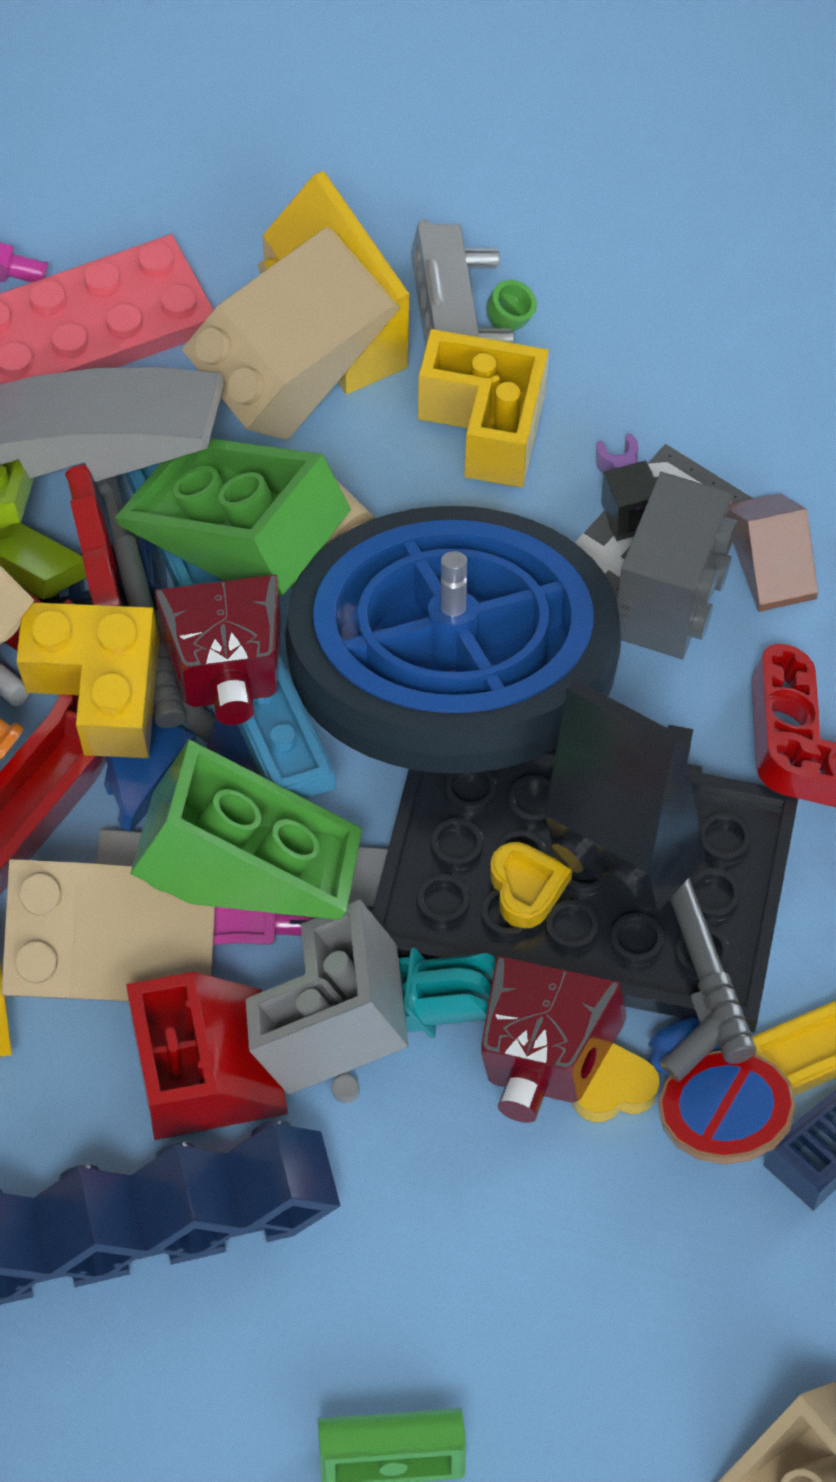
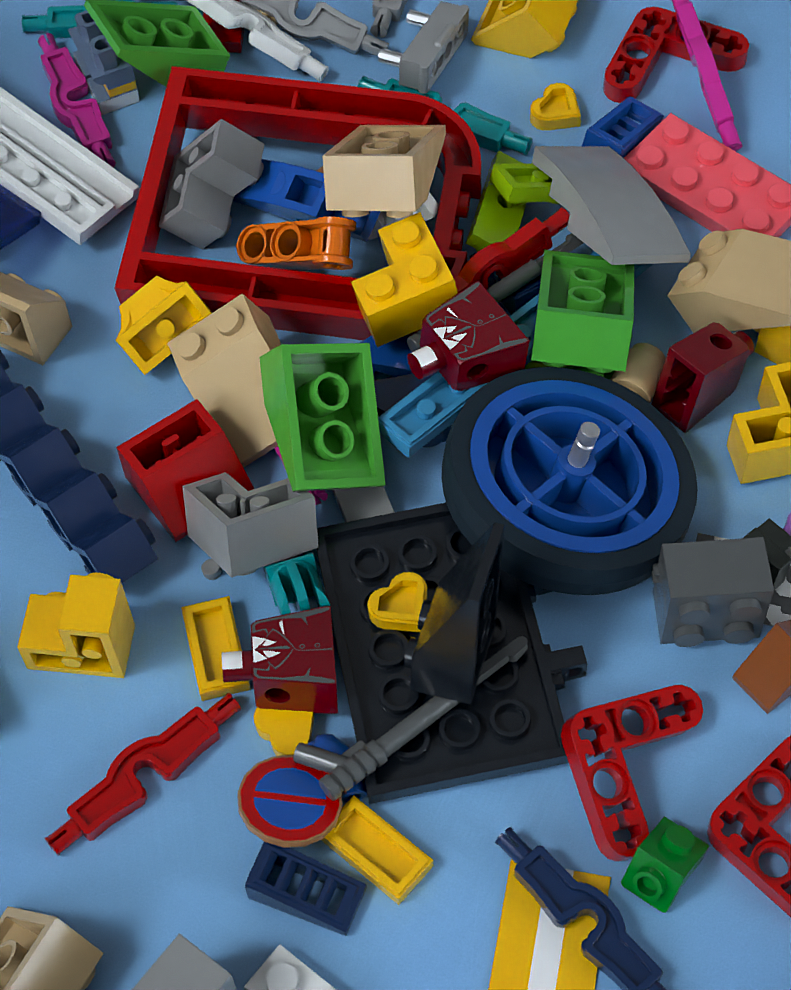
camera: 70 degrees right, 0 degrees up
(372, 421) = (701, 374): none -> dark red torso
(390, 1251) = (79, 630): none -> yellow brick
(459, 1125) = (209, 633): none -> yellow tile
(612, 1298) = (121, 790): none -> red piece

